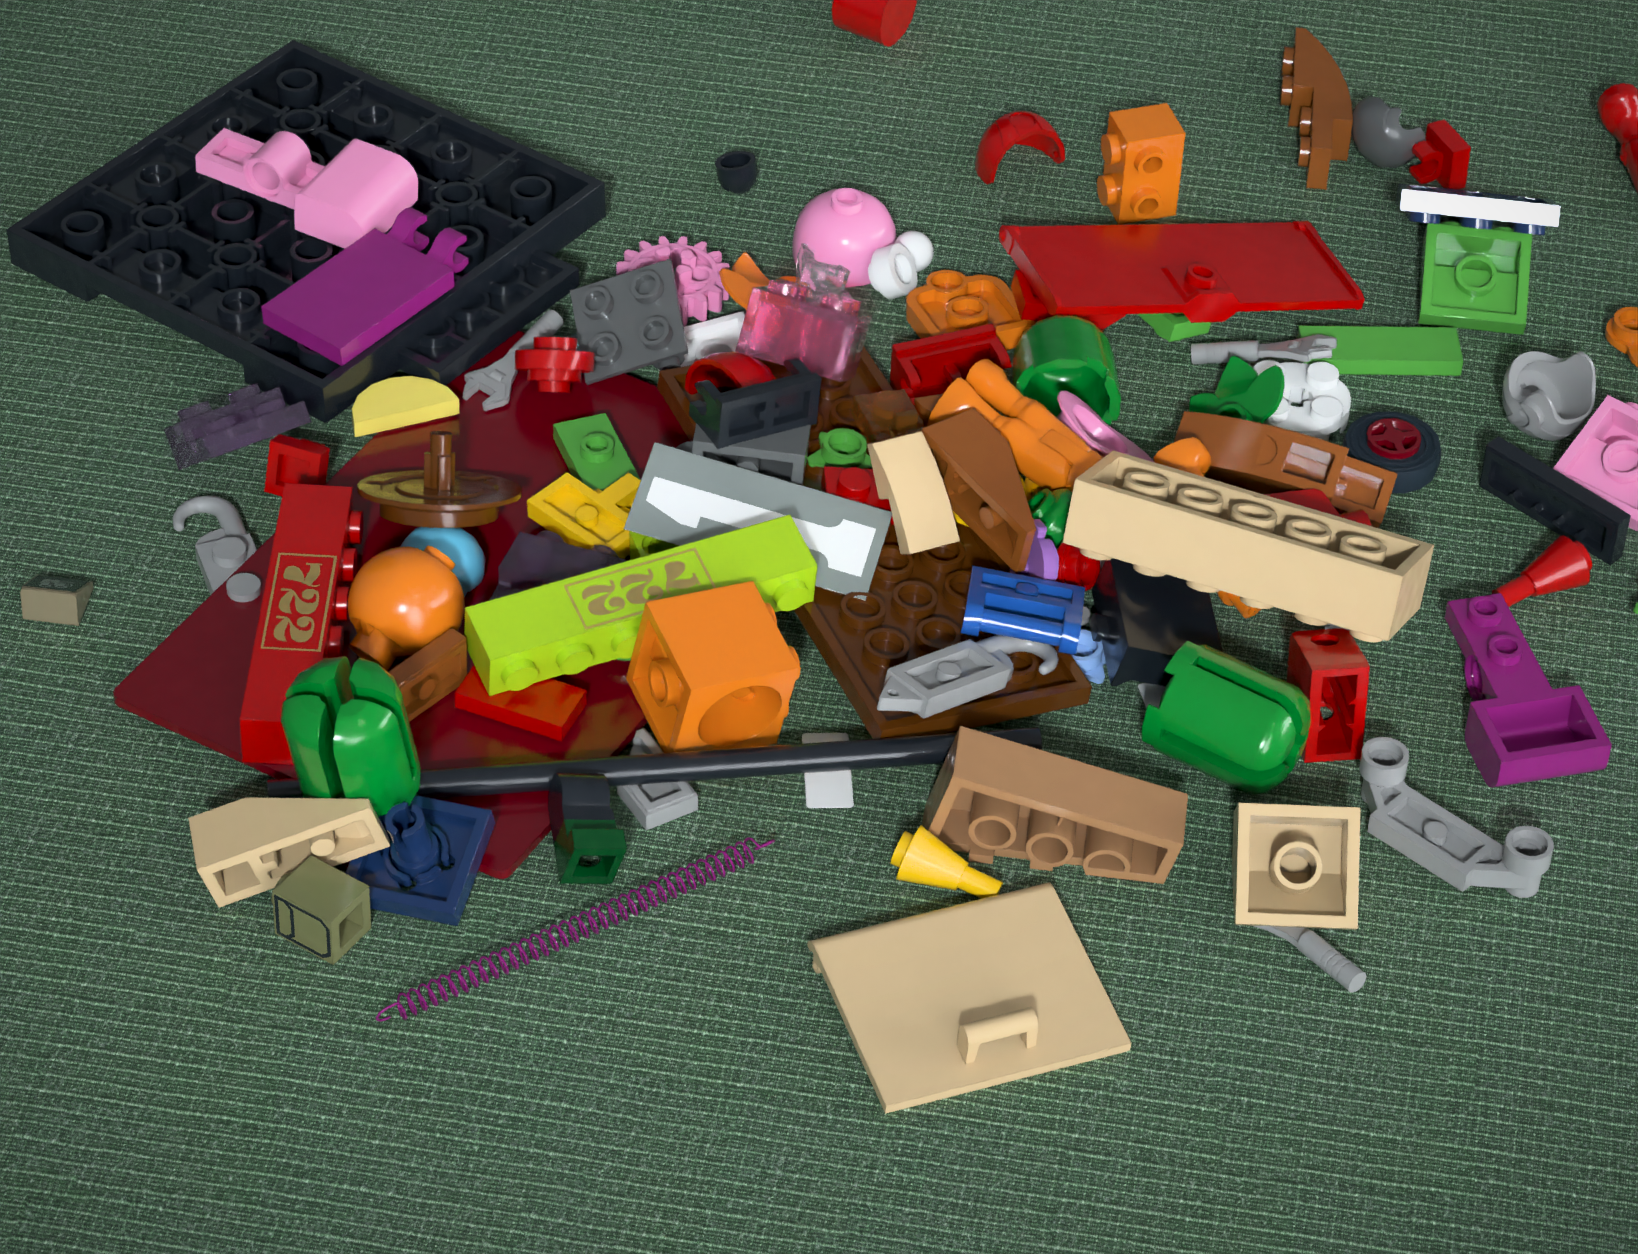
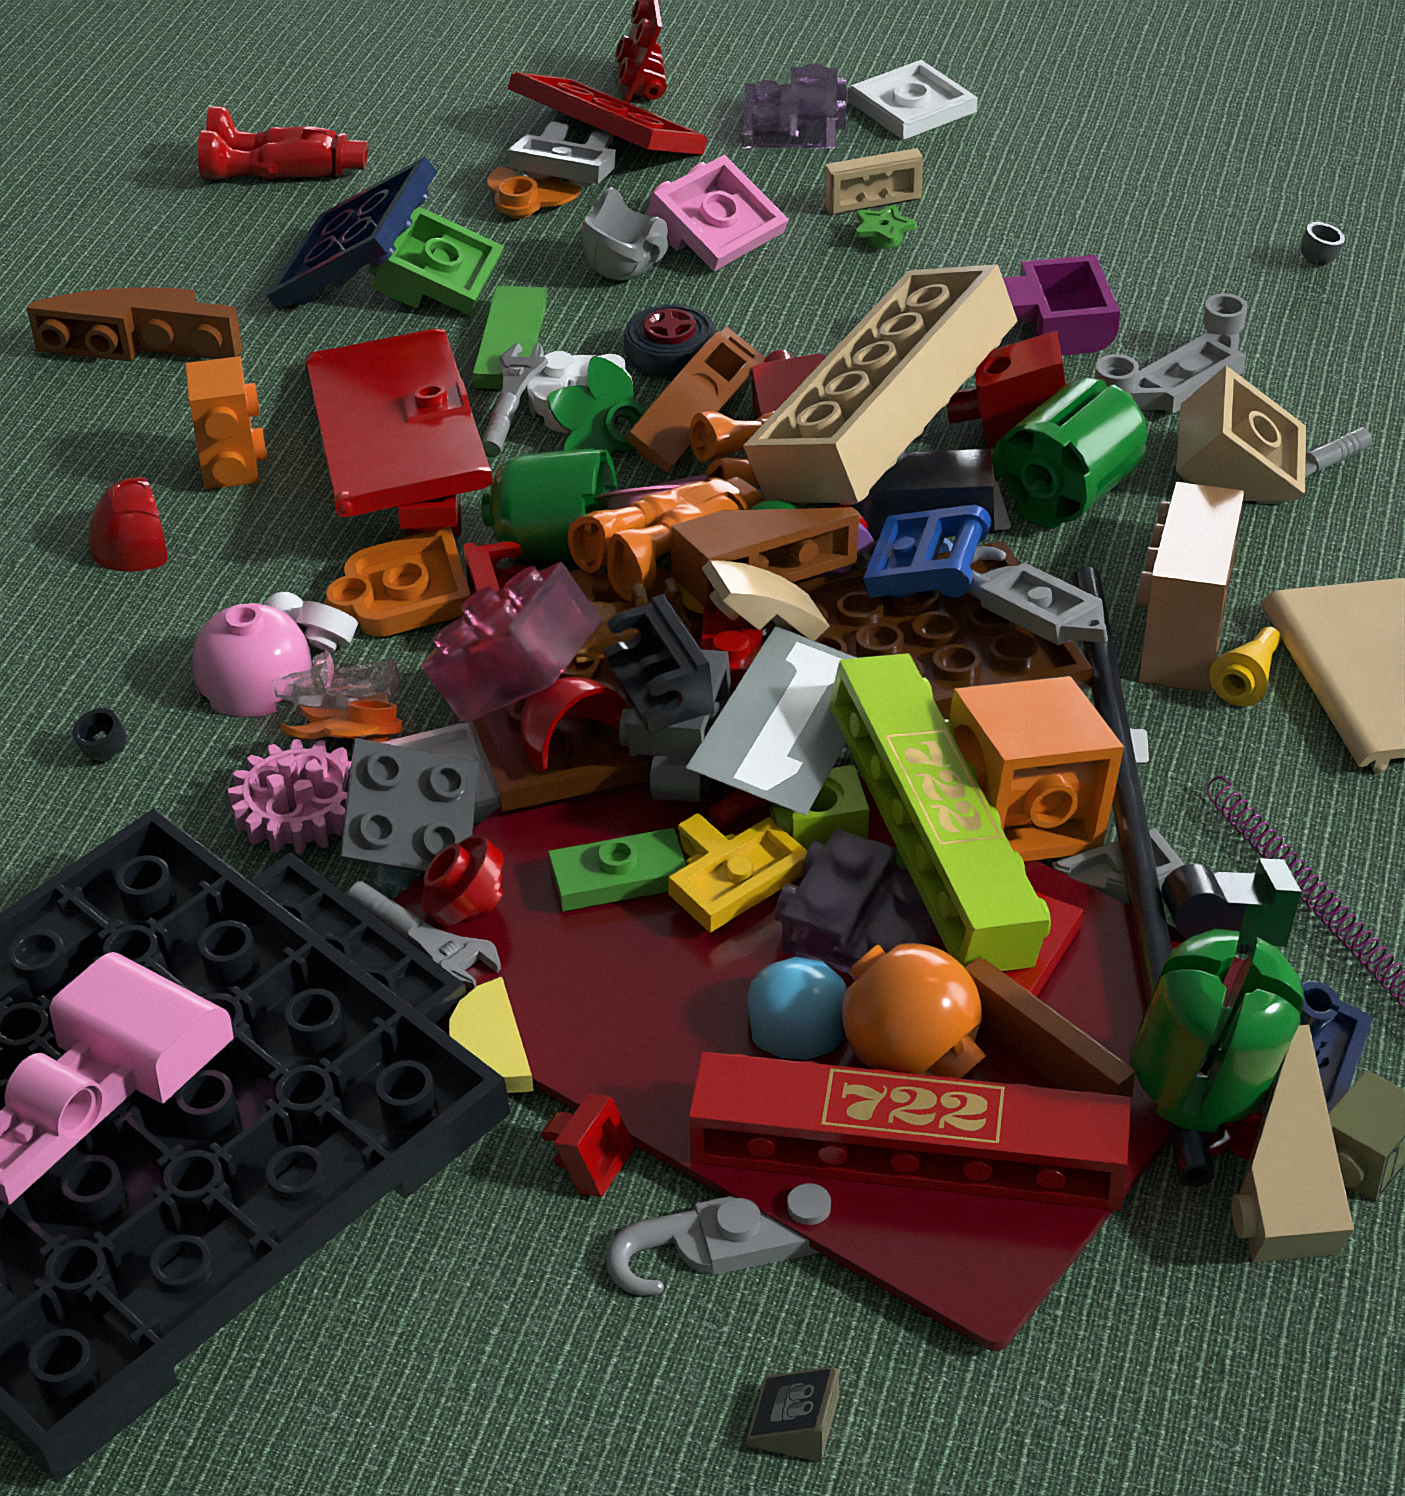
camera: 80 degrees left, 0 degrees up
(245, 421) = (532, 1191): clear purple plate -> none
(367, 289) = (330, 1024): magenta tile -> none
(439, 493) = (708, 979): reddish brown piece -> none
(1380, 135) = (210, 276): dark grey hair -> none
(1442, 156) = (241, 260): red tile -> none
(1554, 500) = (753, 259): black plate -> none
(1558, 568) = (842, 271): red cone -> none

